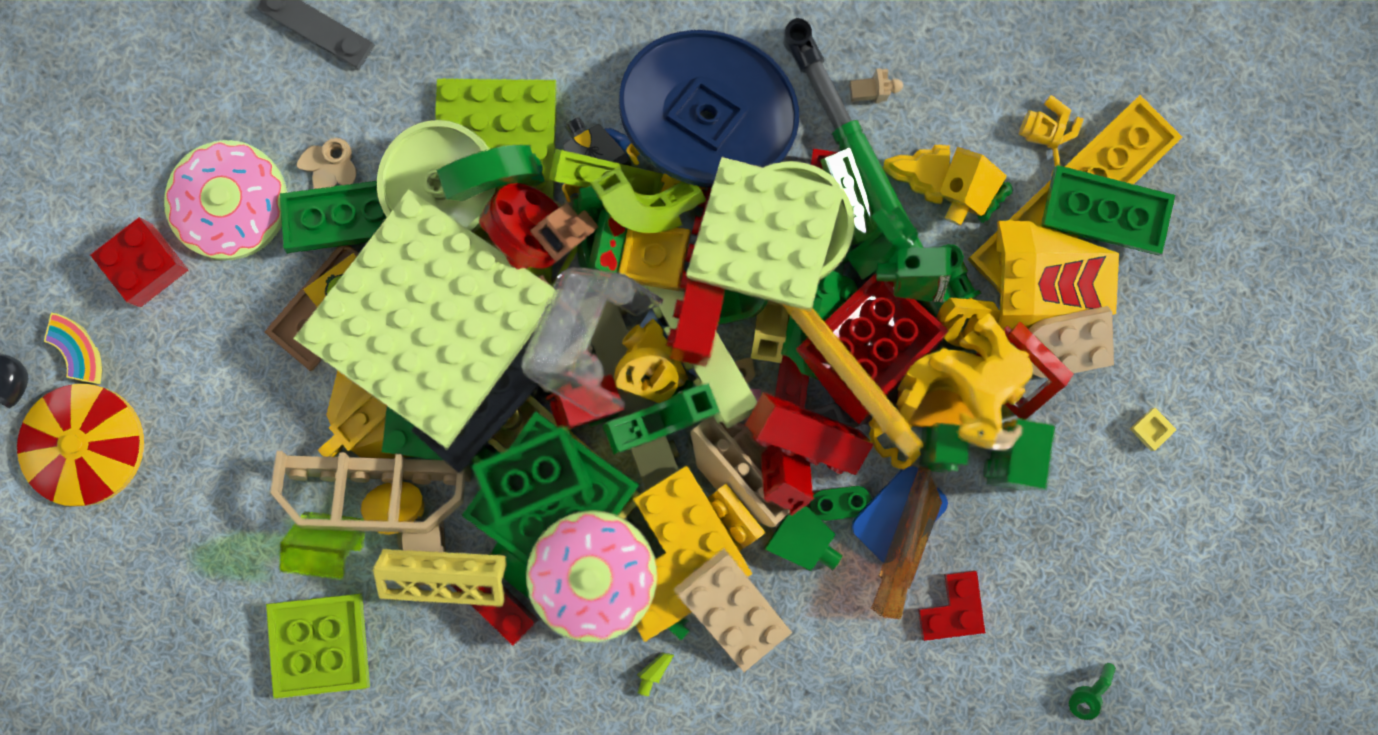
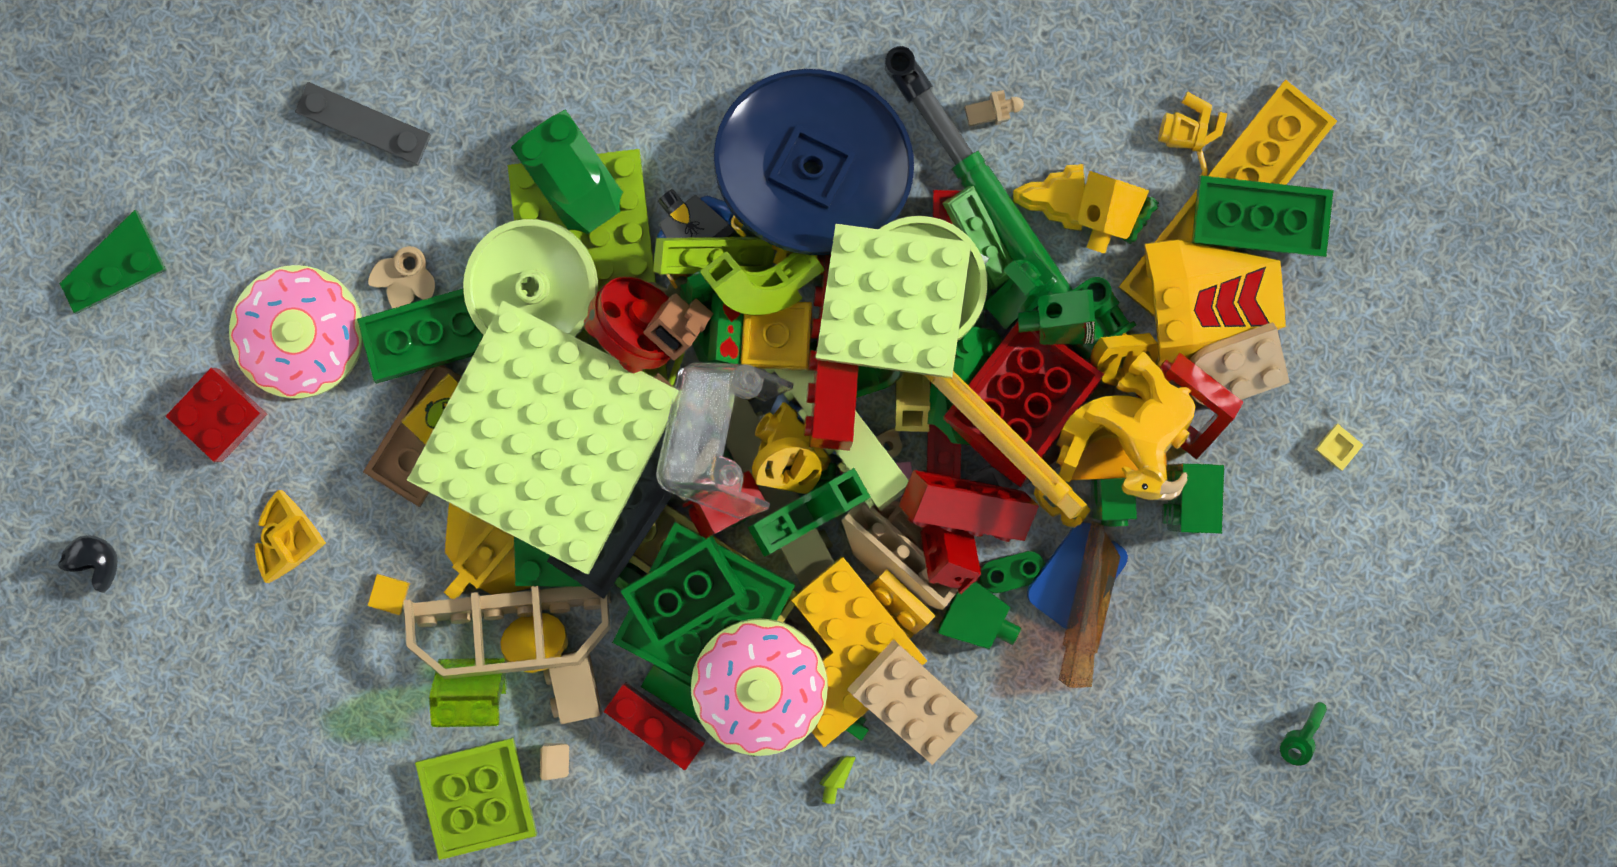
camera: 10 degrees left, 5 degrees up
(73, 121) = (113, 266): none -> green wing
(77, 348) = (162, 517): tile -> none
(80, 445) = (184, 620): dish -> none
(184, 382) = (285, 539): none -> yellow brick
(267, 443) = (388, 594): none -> yellow tile
(394, 620) = (554, 761): none -> tan slope
(437, 571) = (596, 703): light yellow fence -> none
(488, 88) = (569, 173): none -> green slope
(490, 170) = (588, 270): green arch -> none
(963, 613) = (1158, 670): red plate -> none

